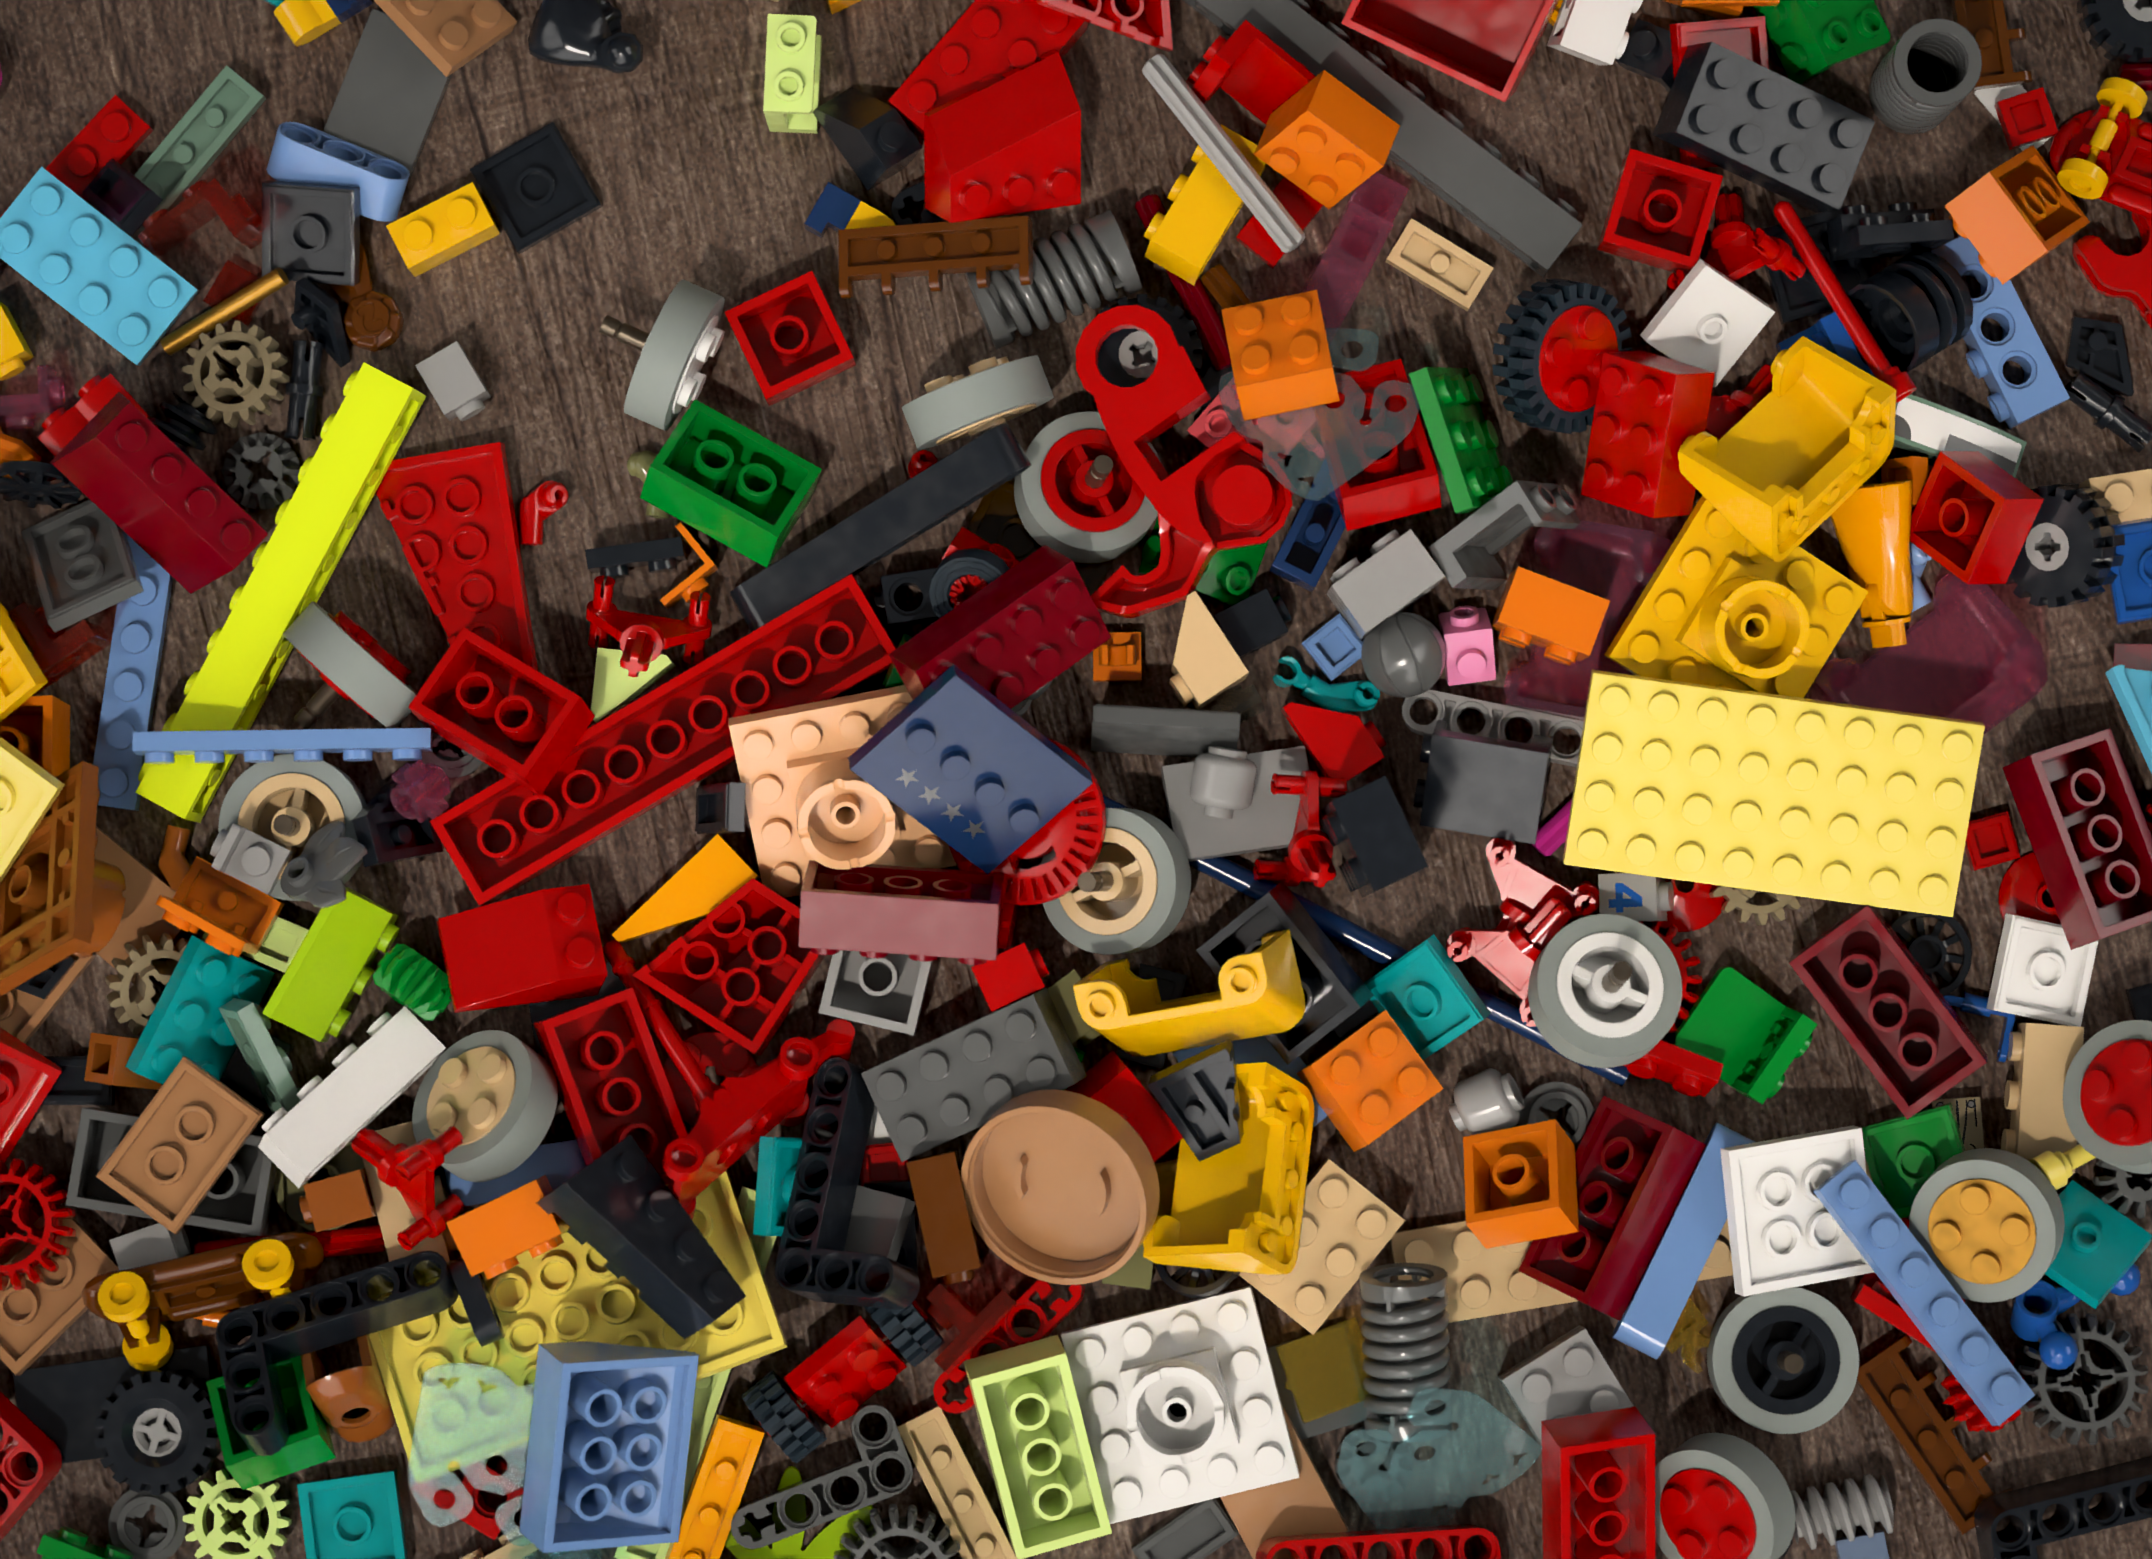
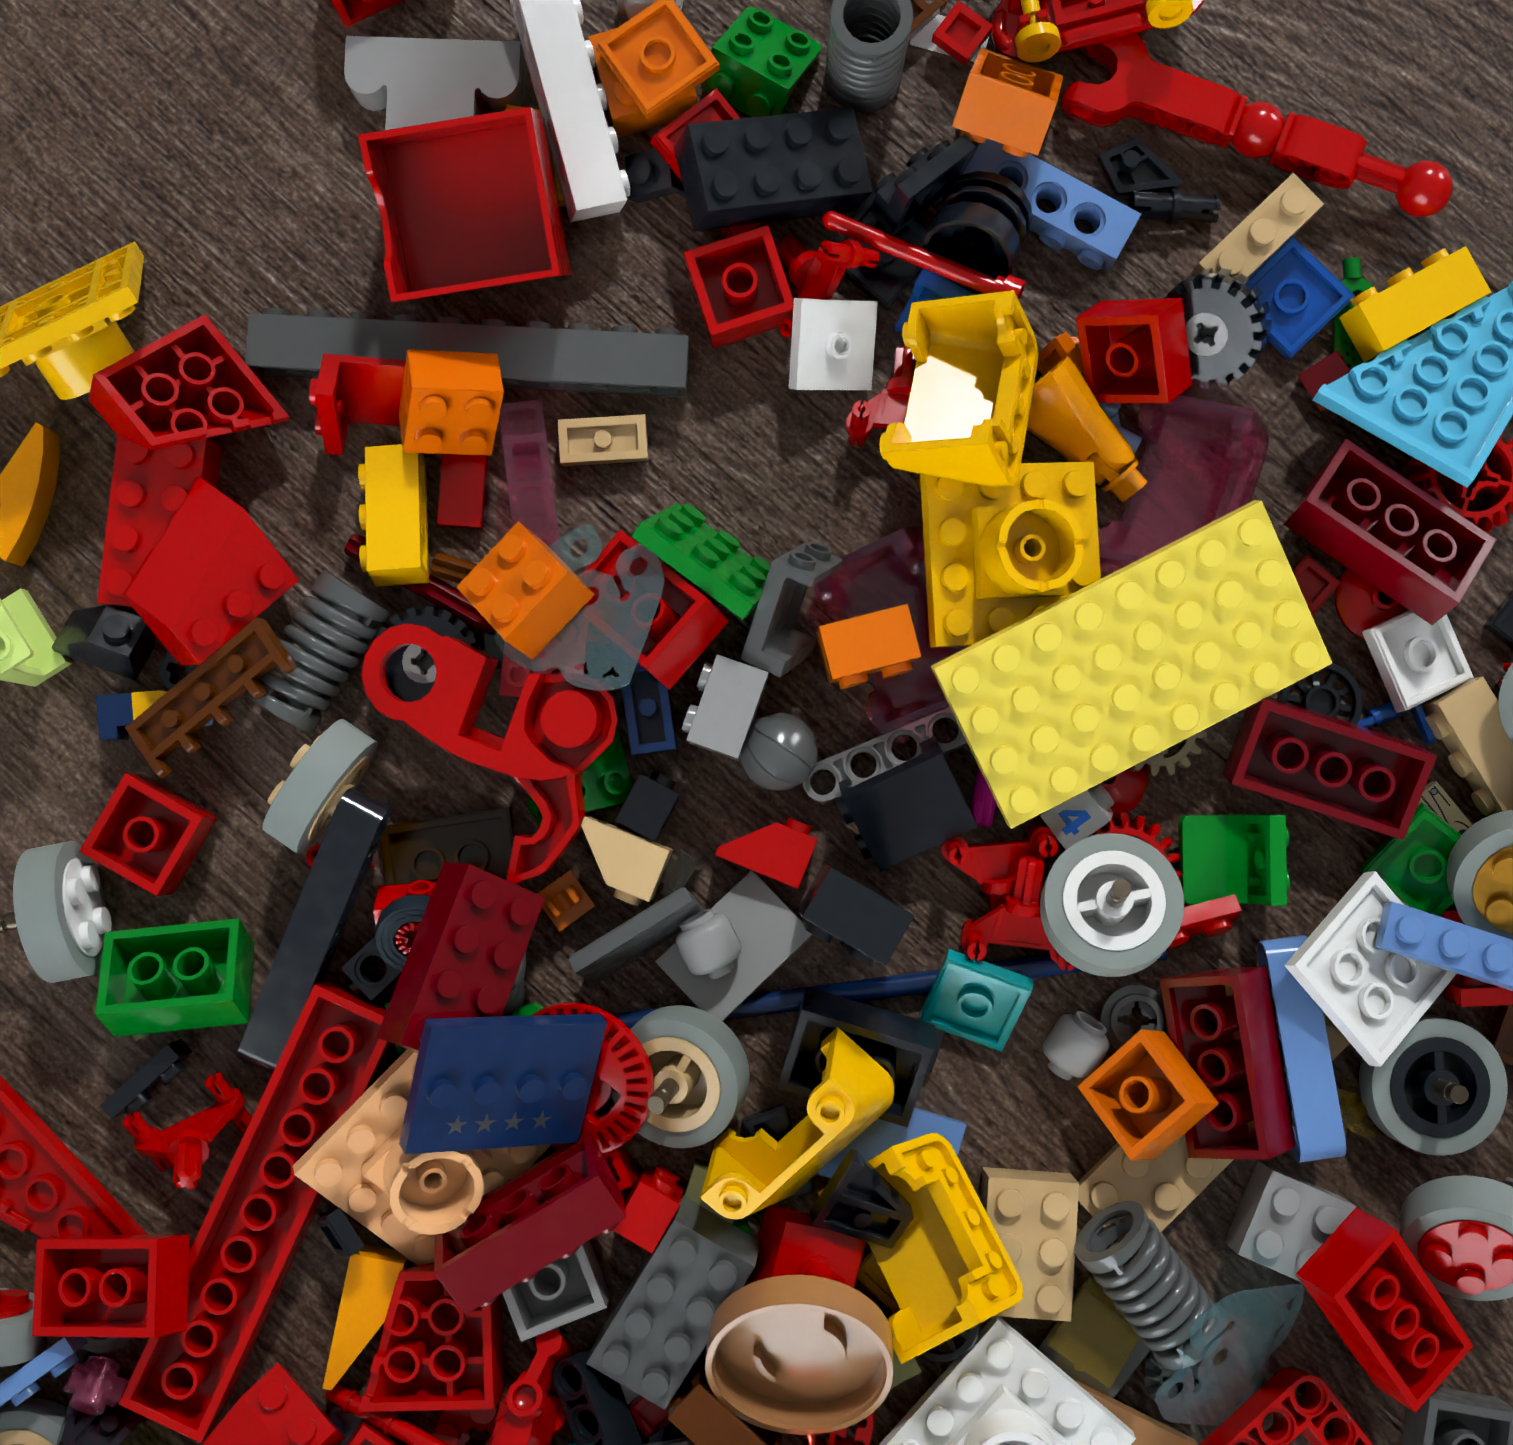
camera: 30 degrees left, 0 degrees up
(536, 508) = (49, 1094): red arm -> none
(614, 687) = (196, 1202): yellowish green slope -> none
(696, 580) = (205, 1062): orange bracket -> none
(1080, 492) = (447, 802): wheel -> none
(1223, 153) = (379, 467): light grey axle -> none
(1310, 847) = (809, 953): red axle -> none
(1334, 647) = (722, 780): medium blue tile -> none
(1338, 697) = (745, 820): teal arm -> none
(1370, 1081) = (977, 1092): orange brick -> none
(1468, 645) = (821, 709): bright pink bracket -> none
(1557, 353) = (740, 443): wheel -> none
(1638, 425) = (838, 457): red brick -> none
(1932, 428) = (1055, 307): slope -> none

